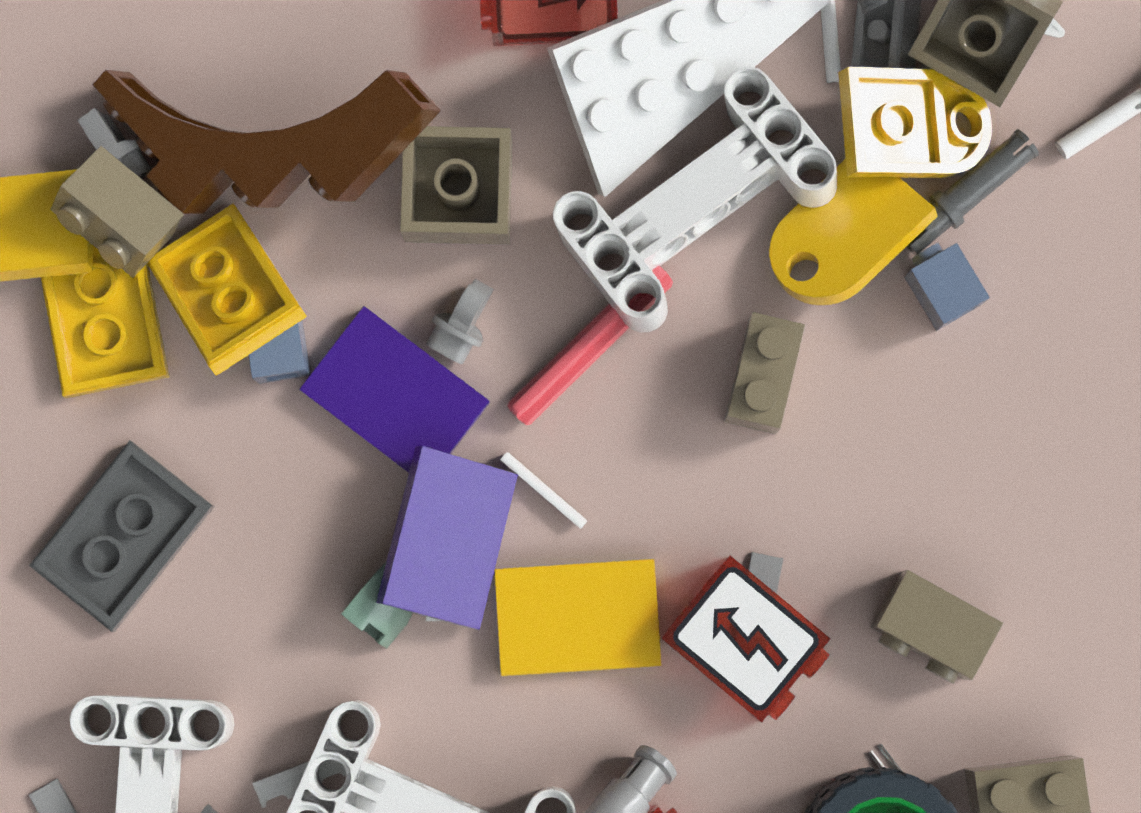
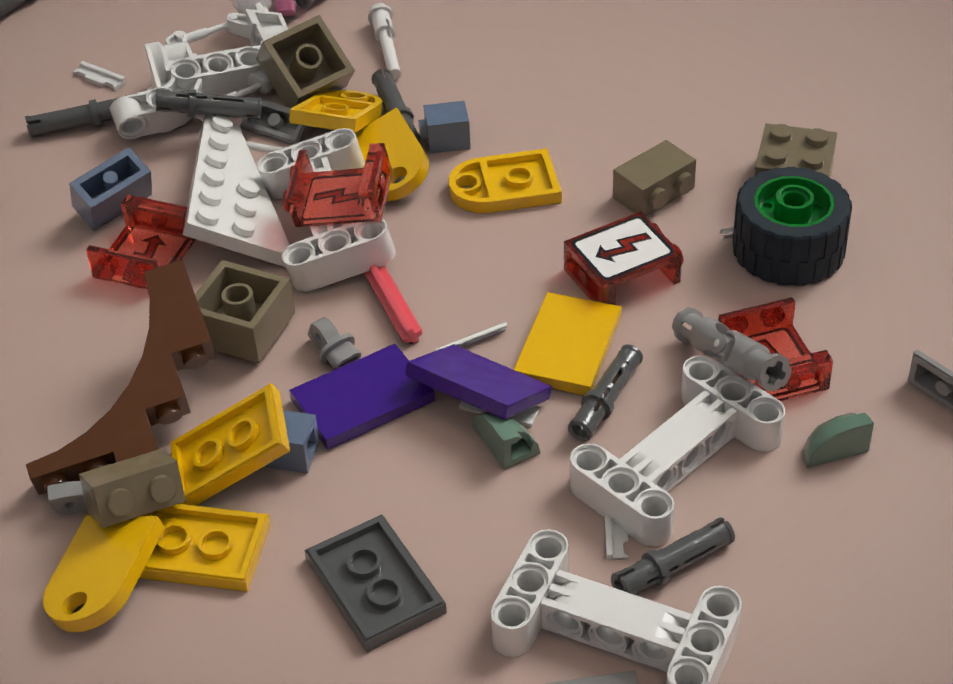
camera: 70 degrees left, 40 degrees down
(500, 697) = (586, 419): none -> dark grey pin
(690, 220) = (338, 194): none -> clear red panel
(764, 373) = (454, 209): dark tan brick -> none
(873, 418) = (505, 182): none -> yellow tile

